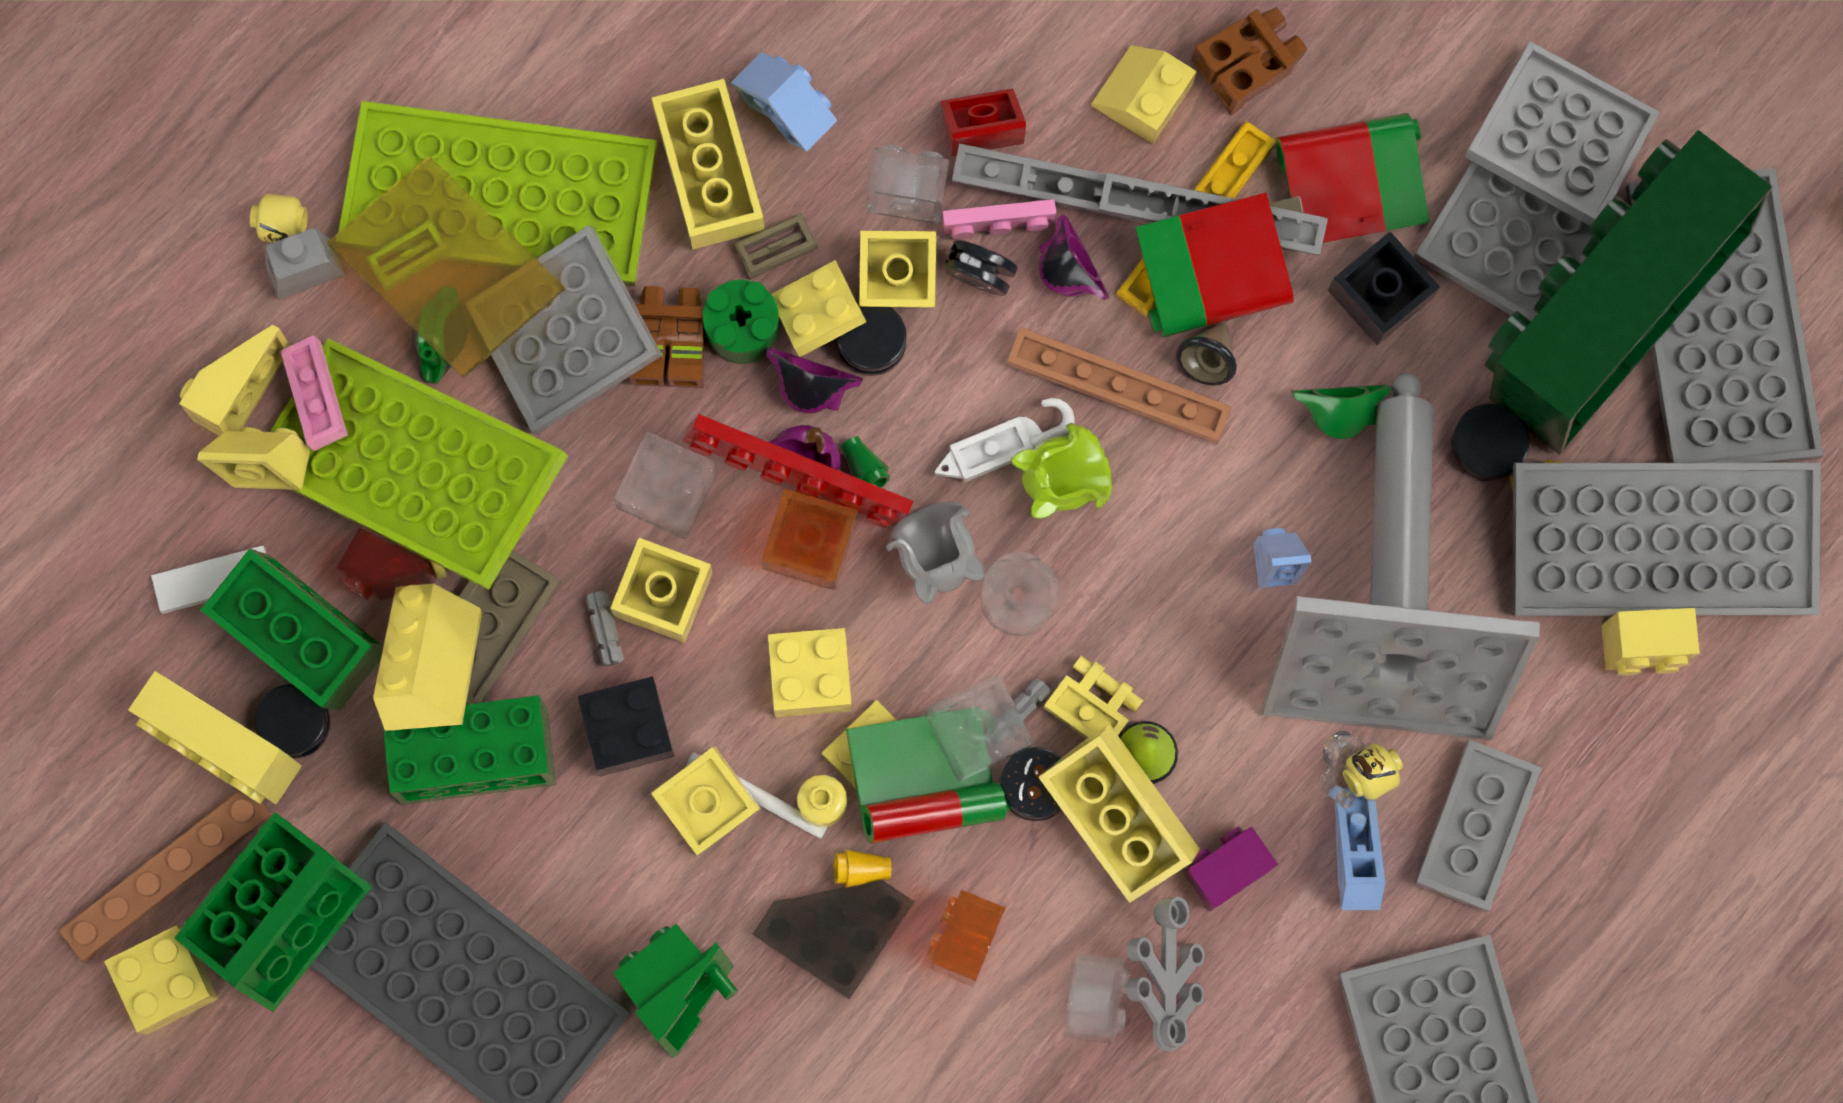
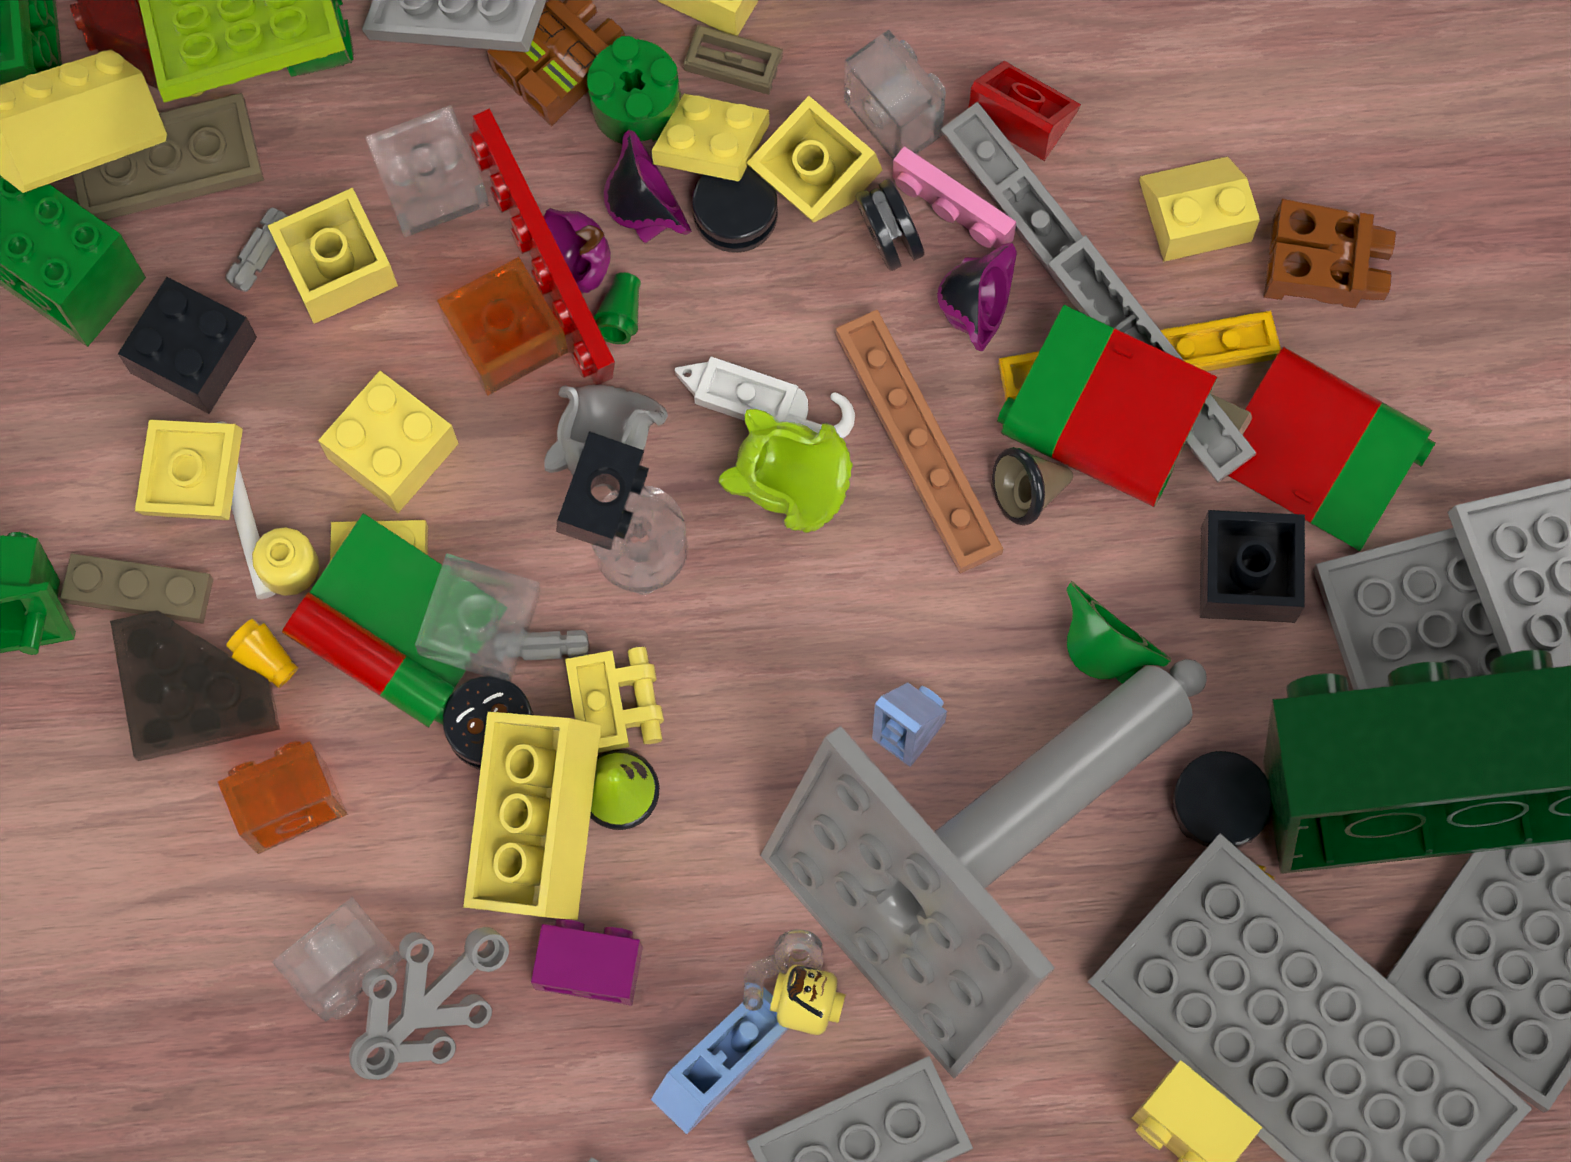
camera: 50 degrees right, 5 degrees down
(742, 900) = (136, 588): none -> dark tan plate
(982, 608) = (602, 463): none -> black brick

